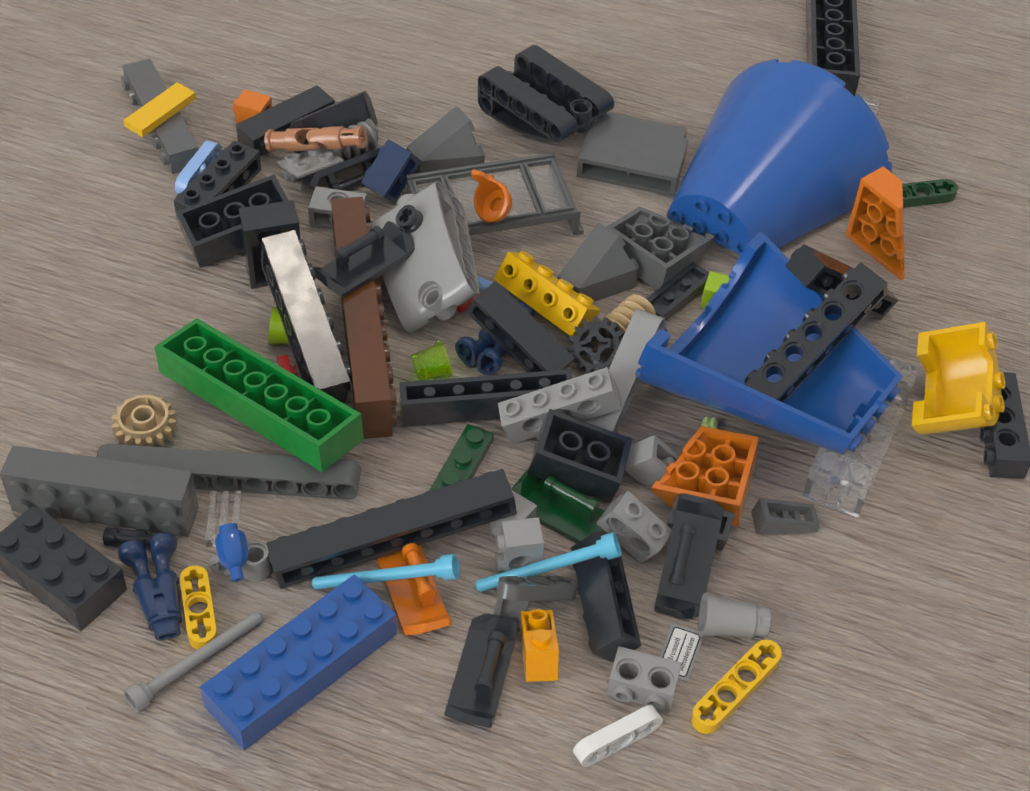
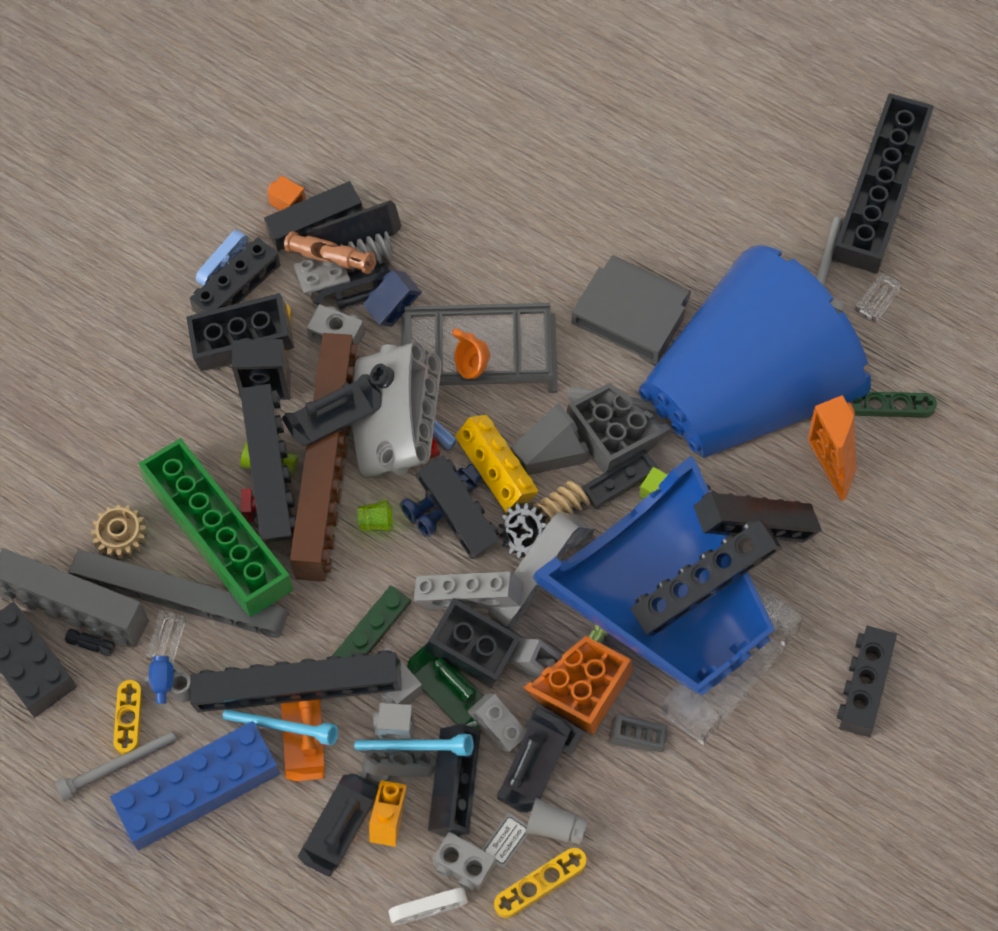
camera: 20 degrees right, 15 degrees up
(156, 596) = (98, 701): dark blue piece -> none
(159, 109) = (197, 190): yellow tile -> none
(173, 135) = (200, 188): dark grey brick -> none
(447, 144) = (451, 278): dark grey slope -> none
(468, 397) = (402, 563): black brick -> none
(542, 97) = (559, 233): black panel -> none
(960, 380) = (836, 641): yellow cylinder -> none

